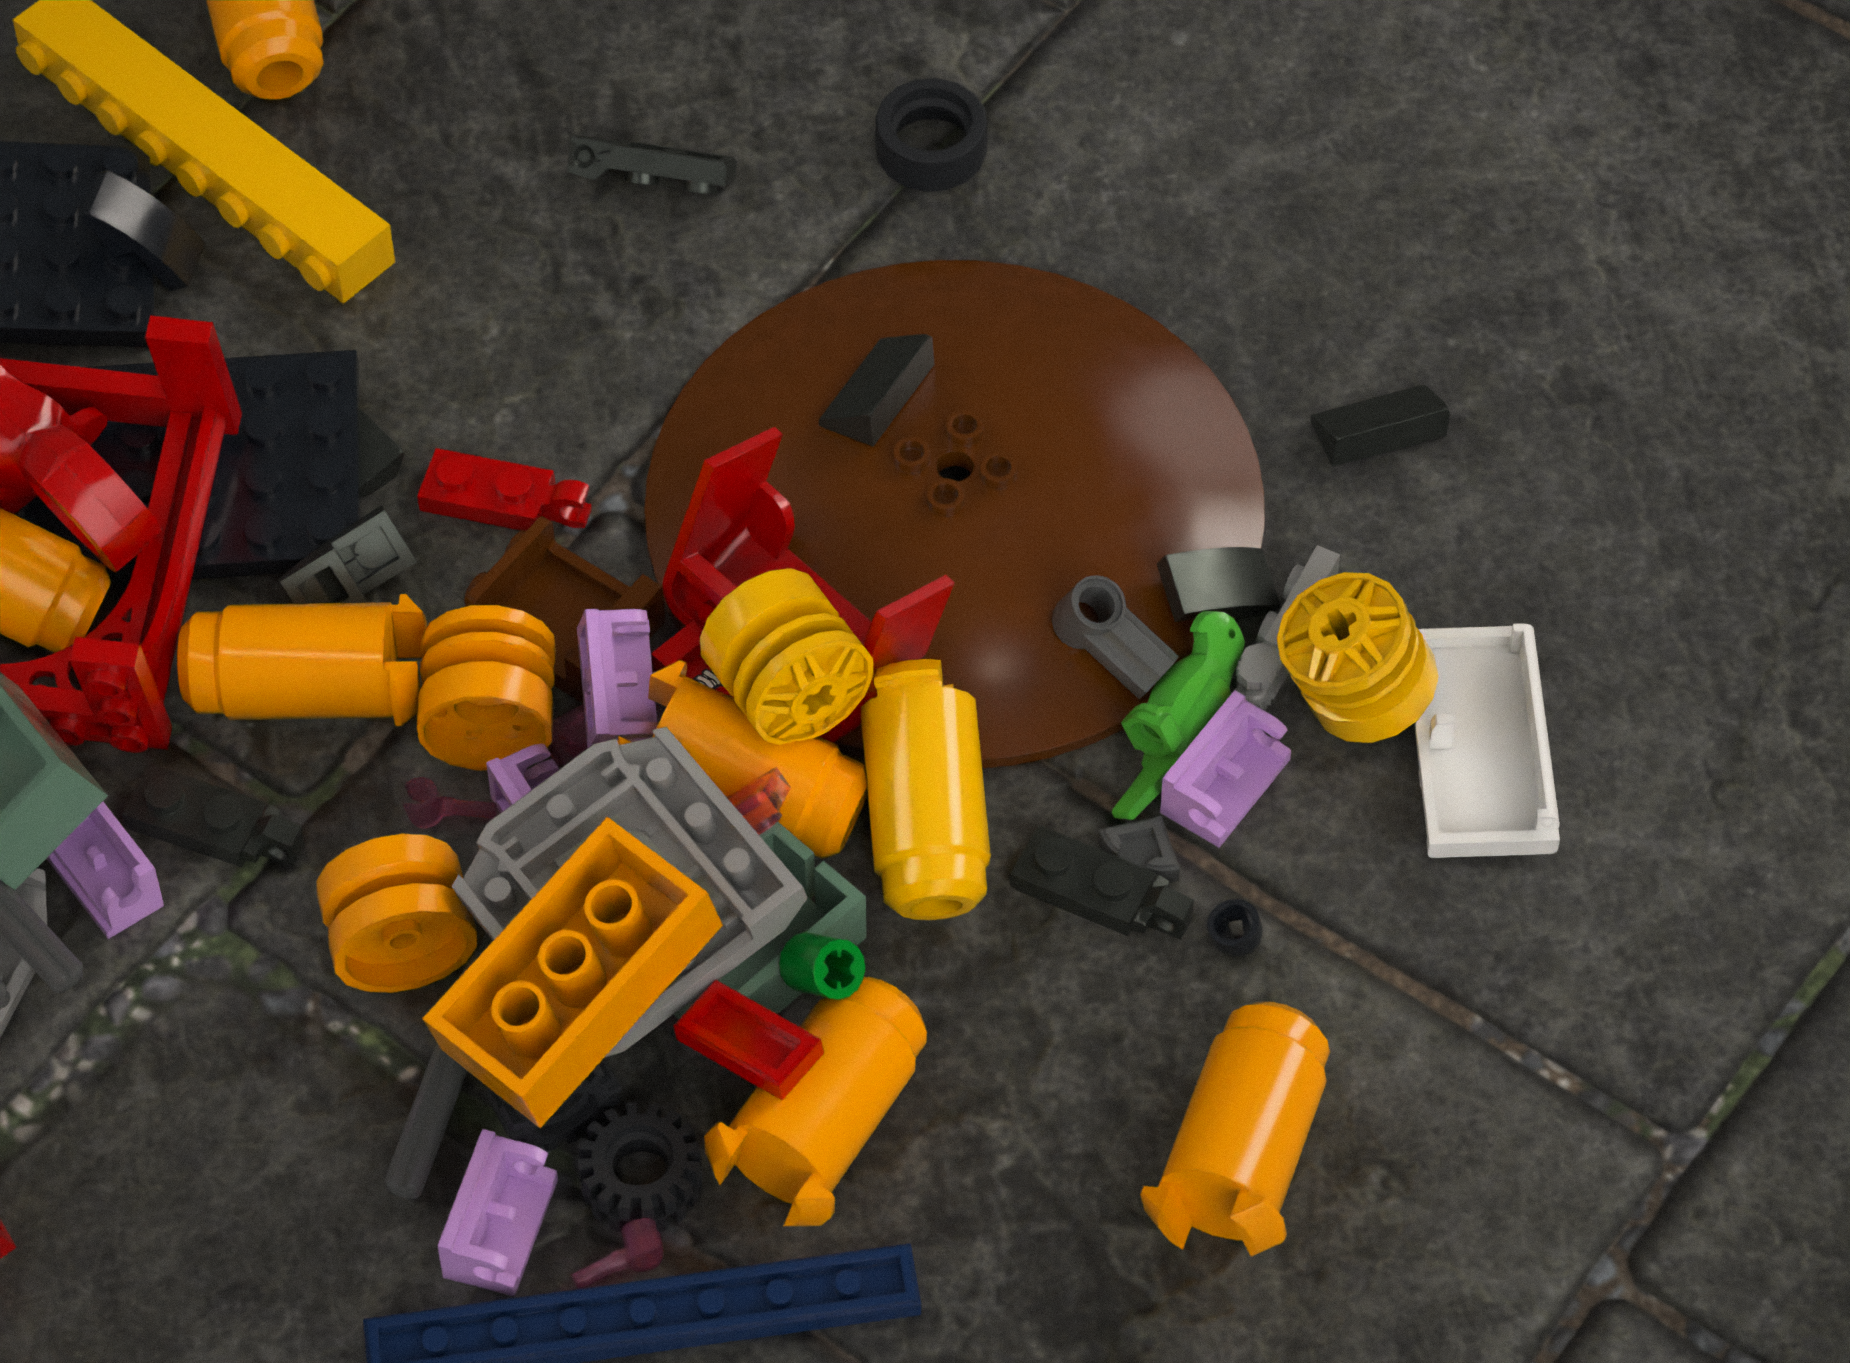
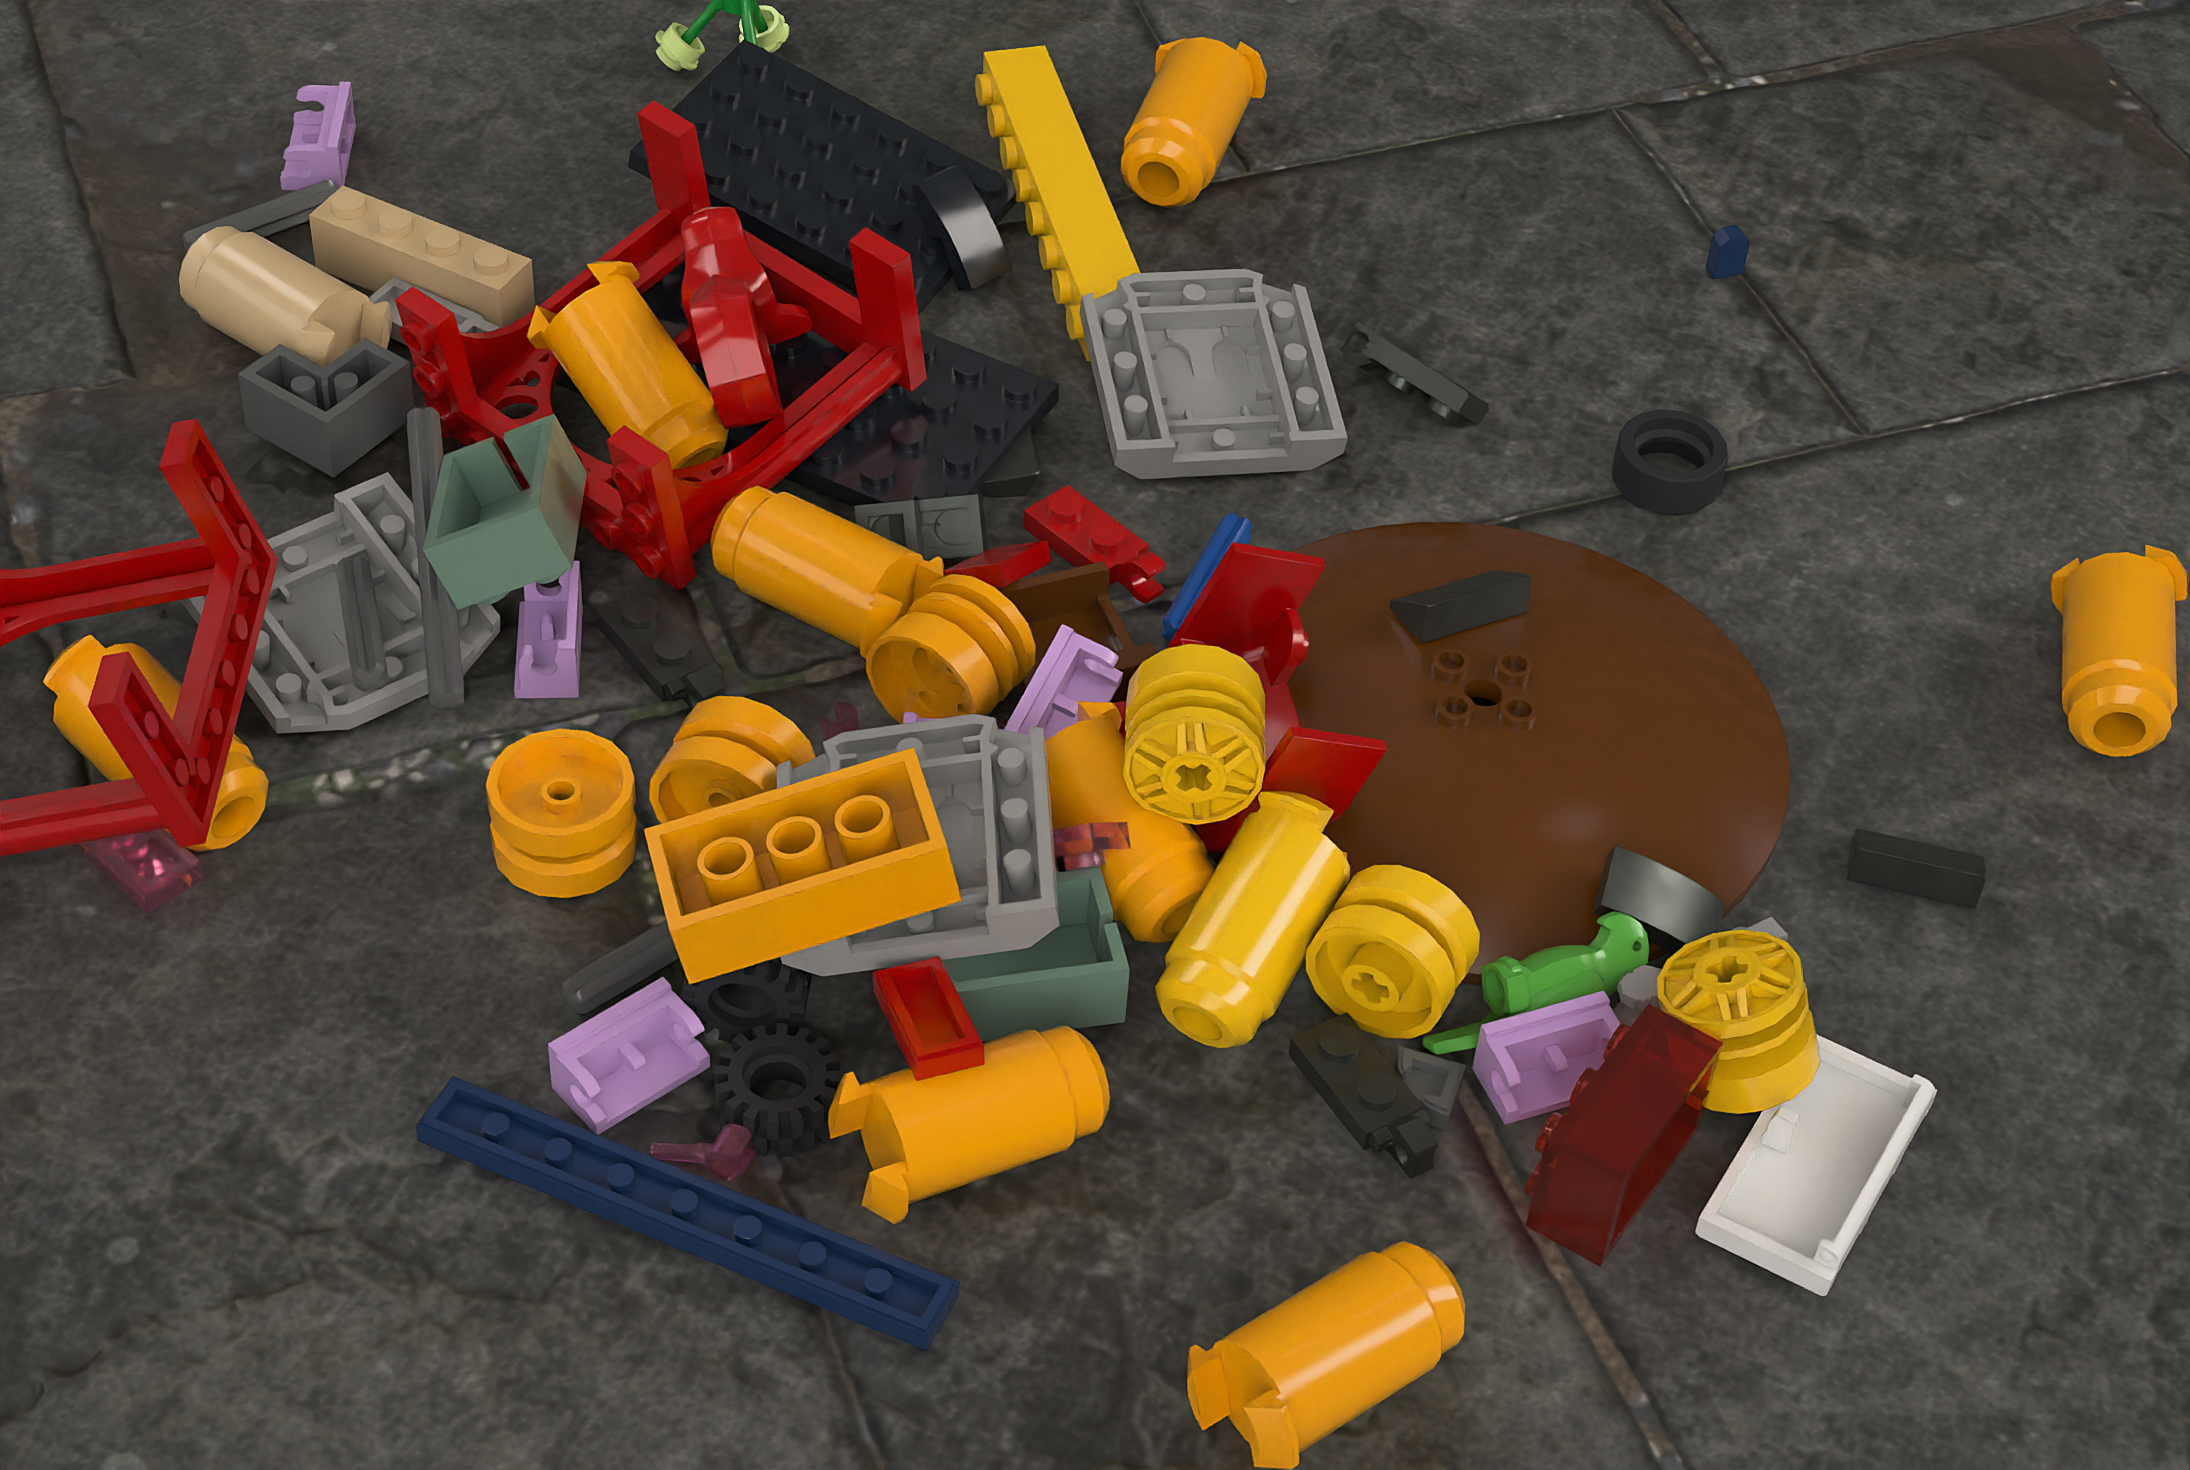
camera: 30 degrees right, 10 degrees down
(267, 1028) = (562, 813): none -> light orange wheel
(449, 570) = (1005, 563): none -> red tile
(487, 265) = (1211, 375): none -> light grey wedge
(623, 474) = (1229, 530): none -> blue axle
(822, 965) = (1061, 1006): green gear -> none
(1051, 753) = (1393, 951): none -> yellow wheel
(1118, 640) = (1523, 894): dark grey piece -> none
(1221, 931) = (1449, 1189): black hinge -> none
(1332, 809) = (1620, 1133): none -> clear red piece
(1419, 128) = (2120, 648): none -> light orange piece

